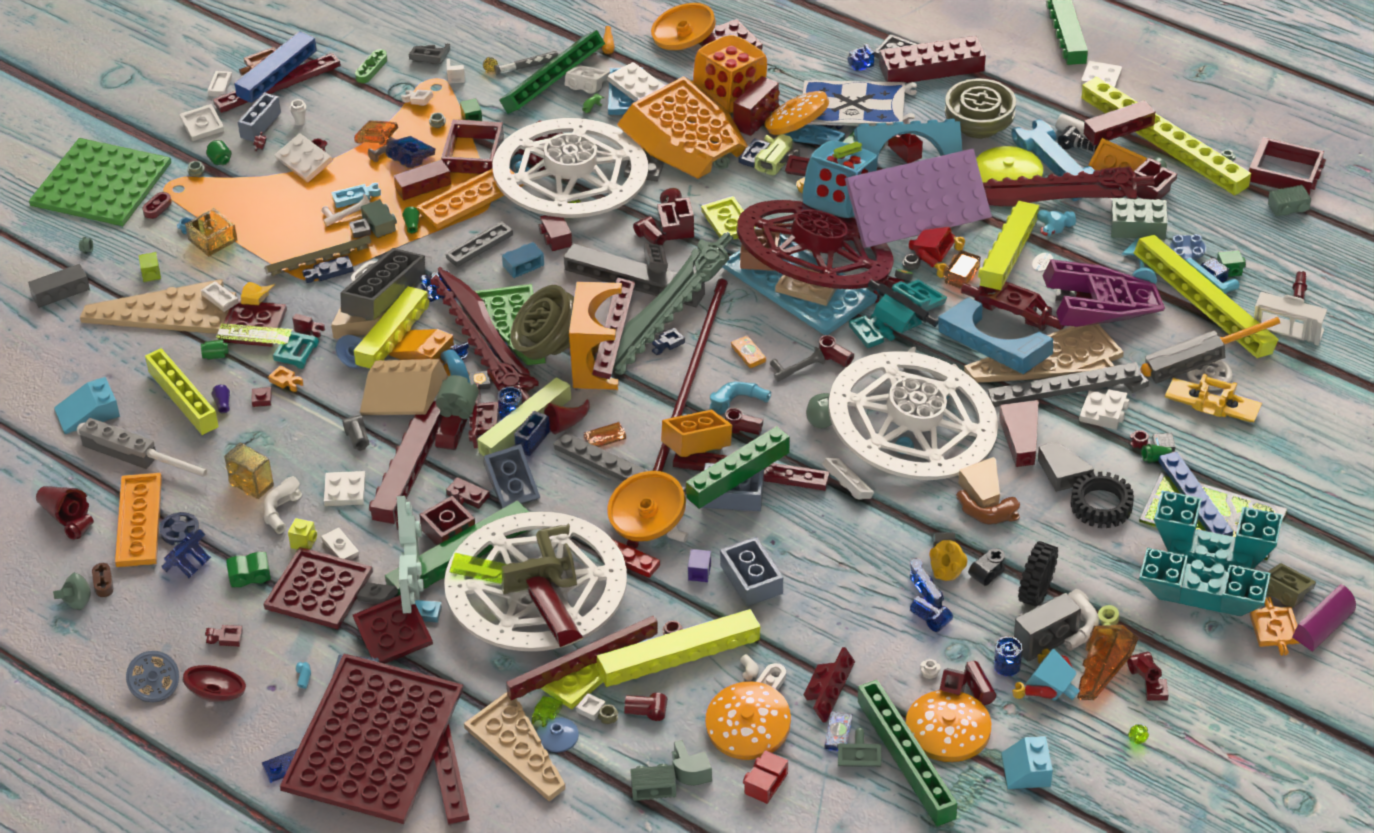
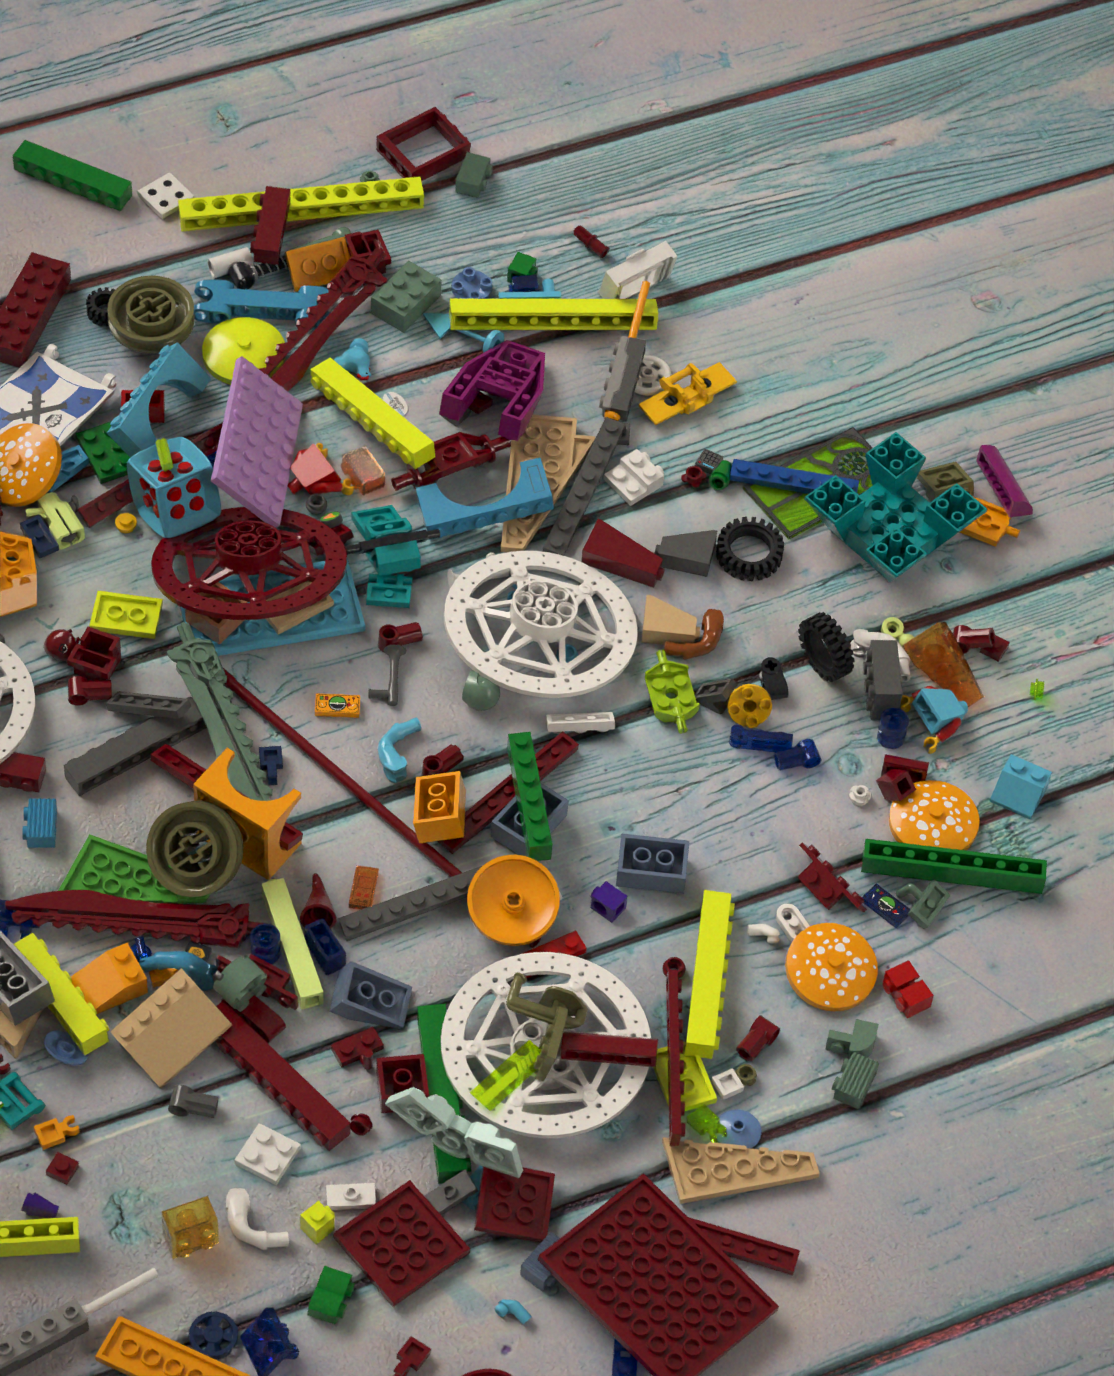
camera: 65 degrees left, 10 degrees up
(930, 506) = (671, 678): none -> lime plate

